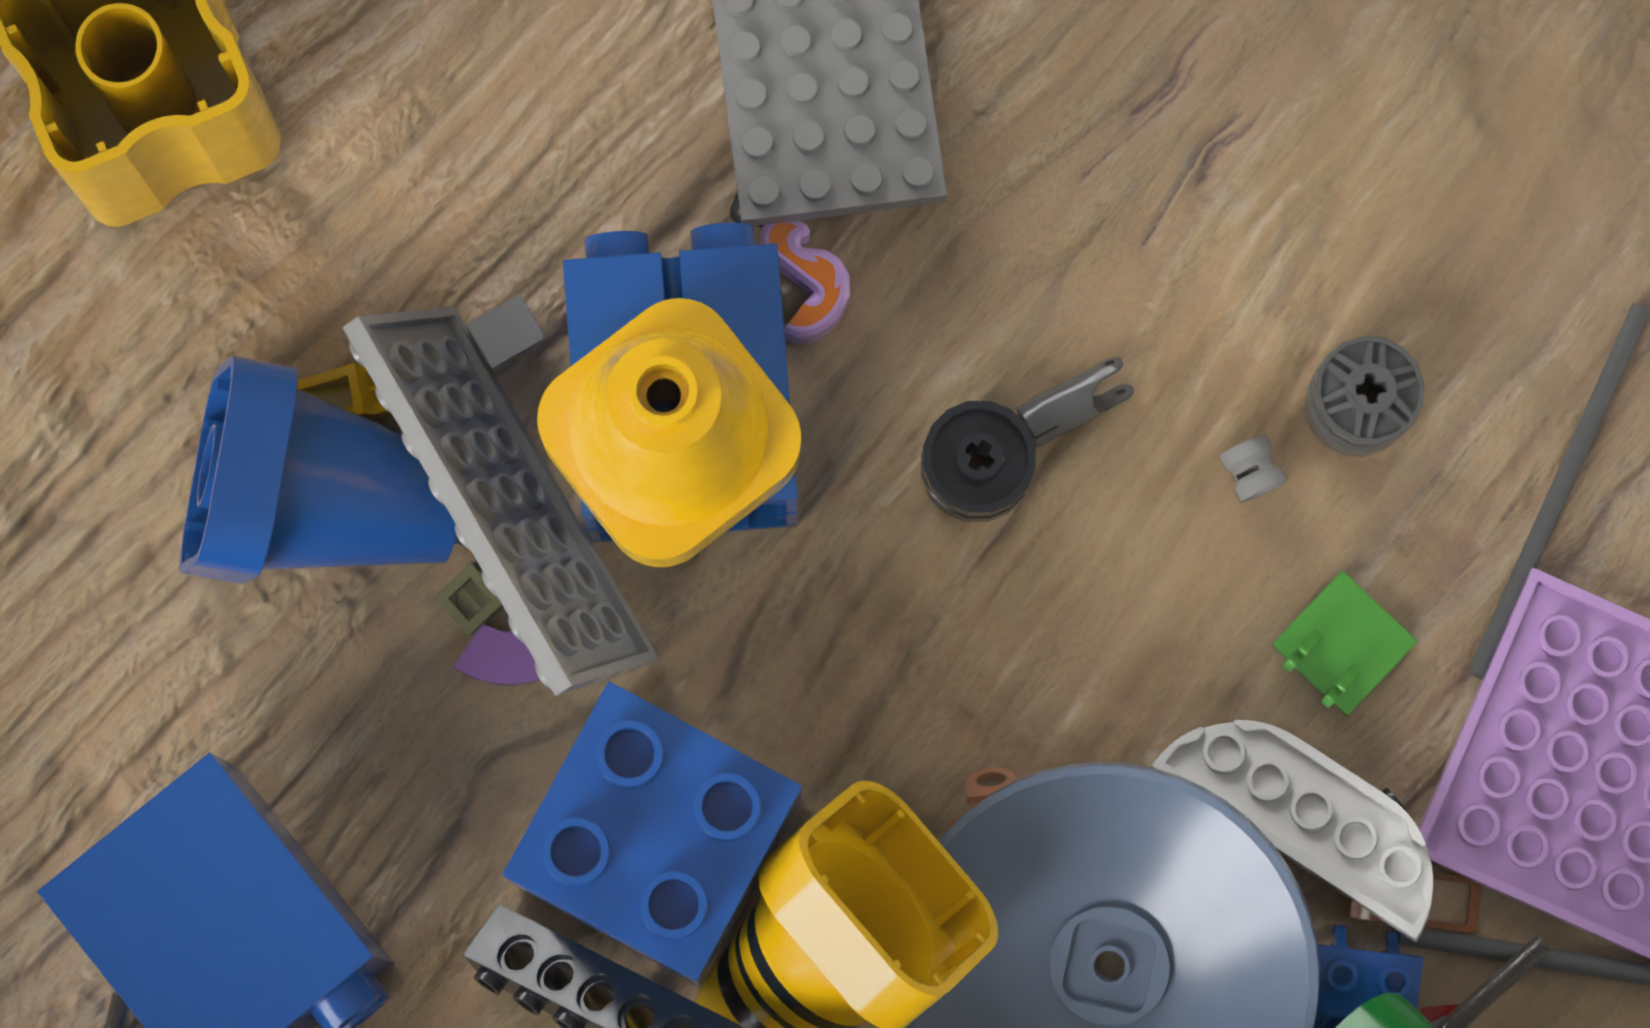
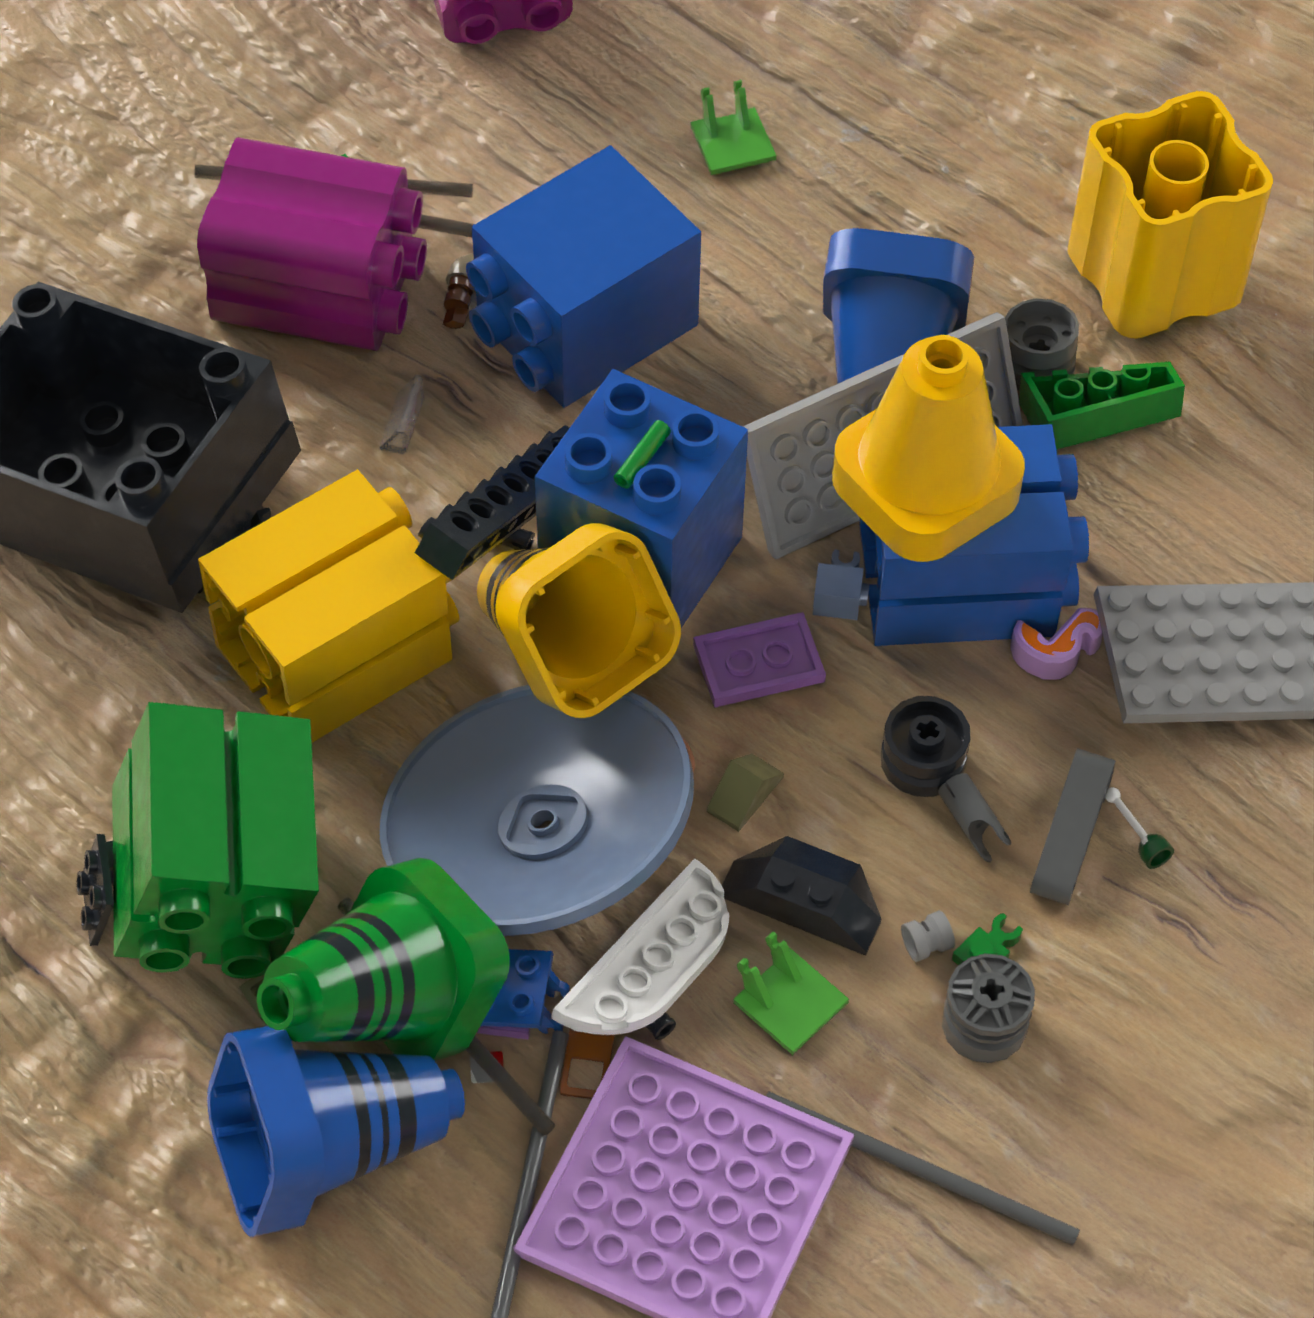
camera: 95 degrees right, 25 degrees down
(303, 248) = (1042, 337): none -> dark grey wheel
(407, 216) = (1102, 400): none -> green wedge
(668, 828) = (642, 453): none -> green piece
(721, 571) = (840, 588): none -> sand blue brick
(835, 681) = (759, 659): none -> medium lavender plate
(1035, 699) = (743, 790): none -> olive slope
(1046, 253) = (1072, 826): none -> dark grey beam
(1110, 179) = (1152, 848): none -> hinge
(1187, 623) = (807, 892): none -> black wedge
(1264, 400) = (988, 943): none -> green plate

